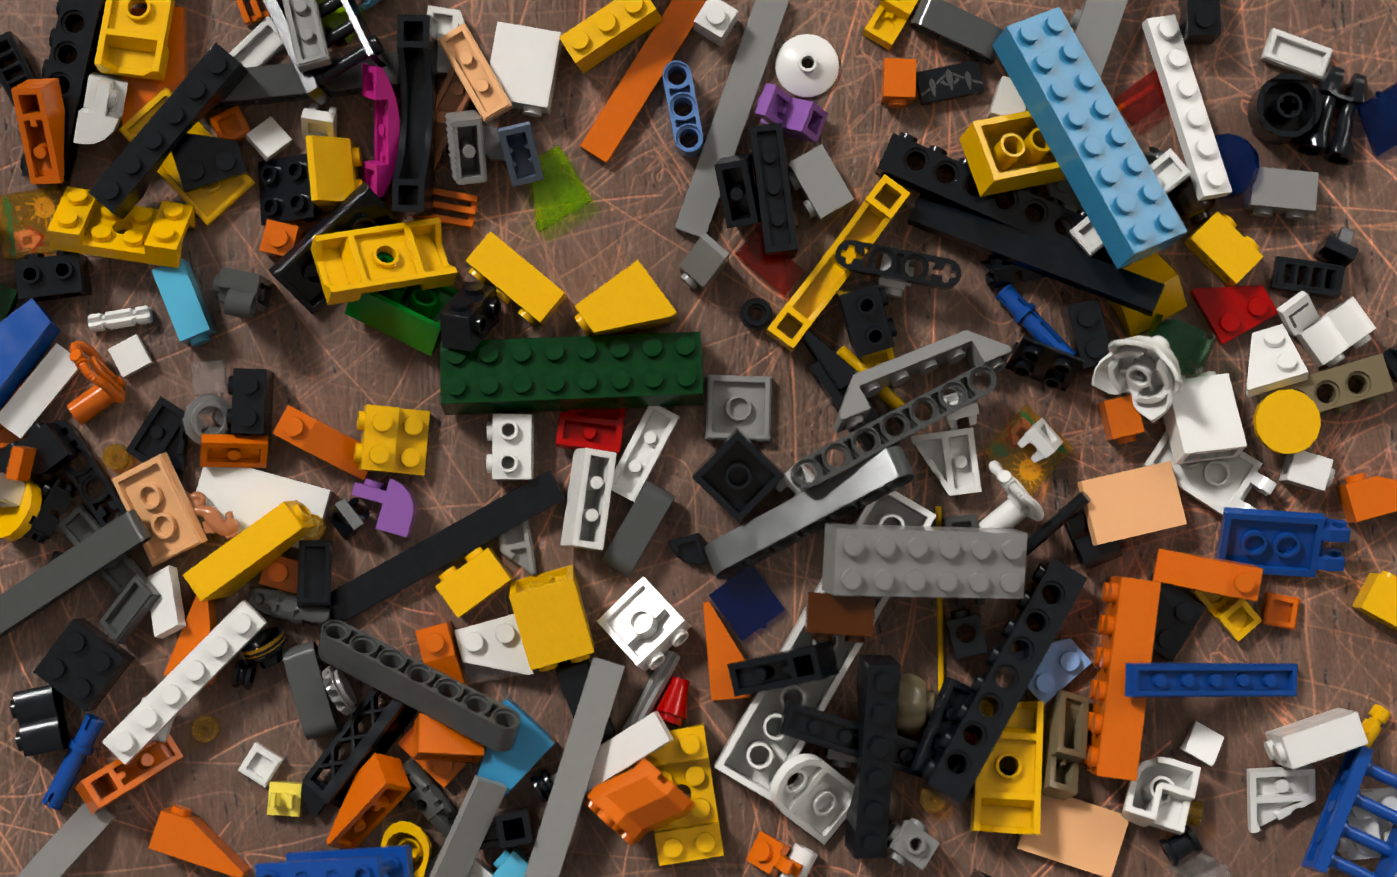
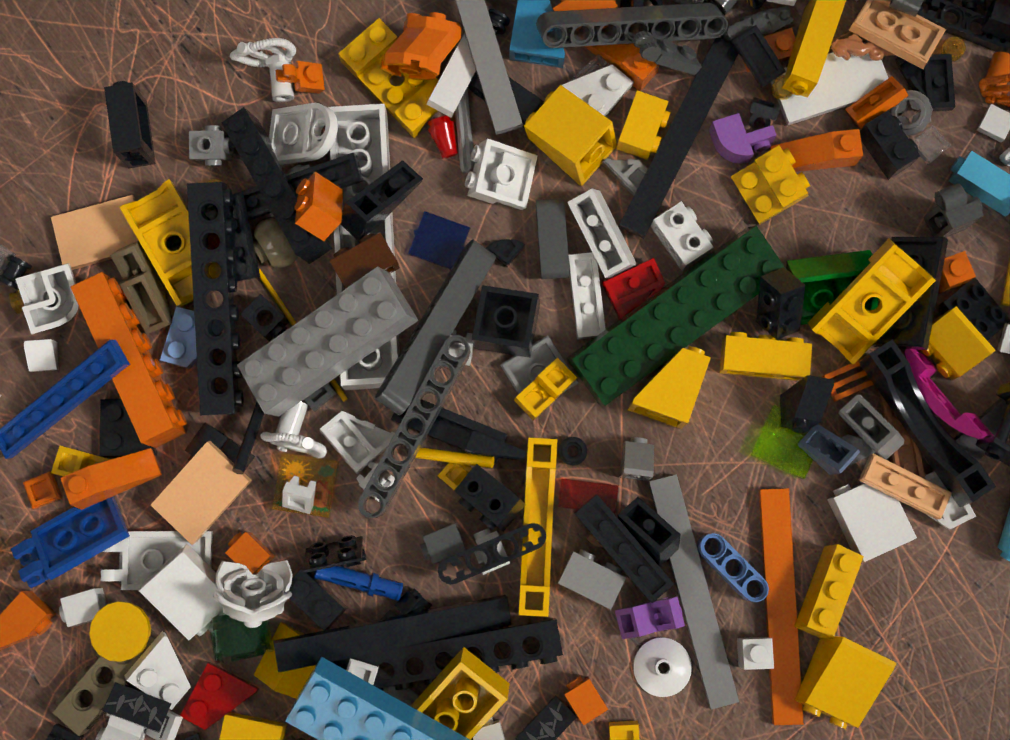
camera: 145 degrees right, 5 degrees down
(319, 122) = (988, 374): tile -> none
(403, 633) = (666, 53): none -> dark grey hinge
(513, 209) = (805, 403): none -> black slope
(720, 652) = (434, 192): orange slope -> none
(743, 387) = (545, 389): none -> yellow slope
(848, 697) = (318, 206): none -> orange brick
(867, 383) = (384, 531): light grey slope -> none
(935, 307) = (442, 544): none -> dark grey brick
(1313, 342) = (136, 707): none -> black tile

